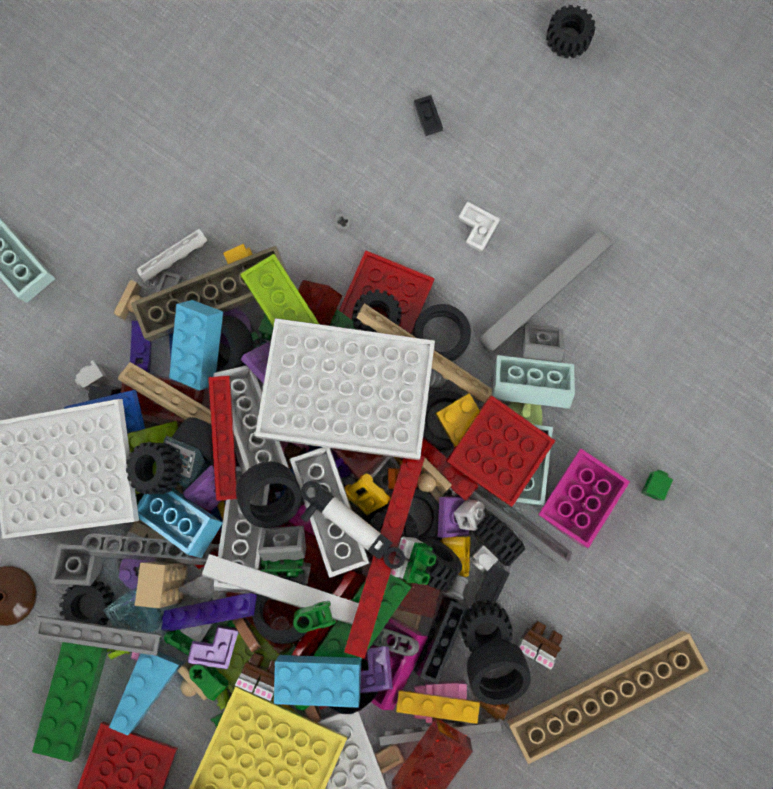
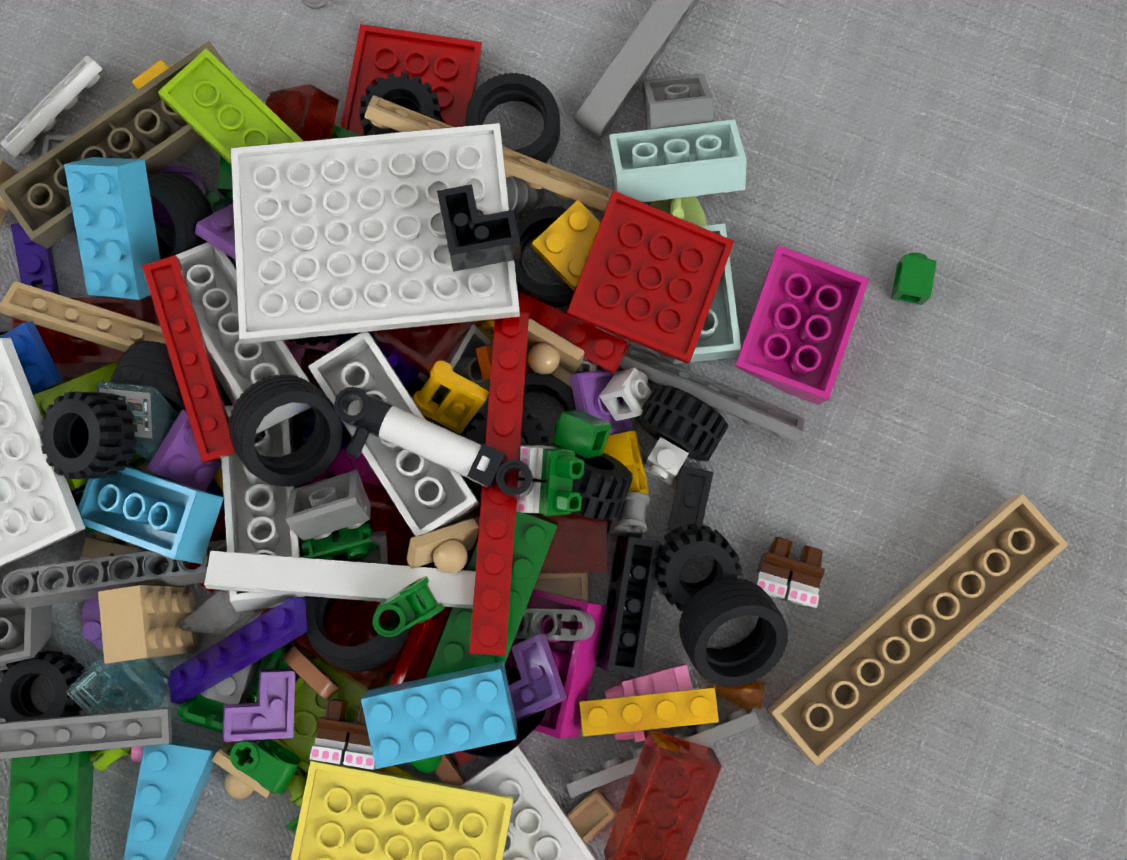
camera: 10 degrees left, 0 degrees up
(343, 584) = (444, 547): none -> tan tile
(402, 410) = (474, 238): none -> black brick
(438, 534) = (581, 433): none -> green brick

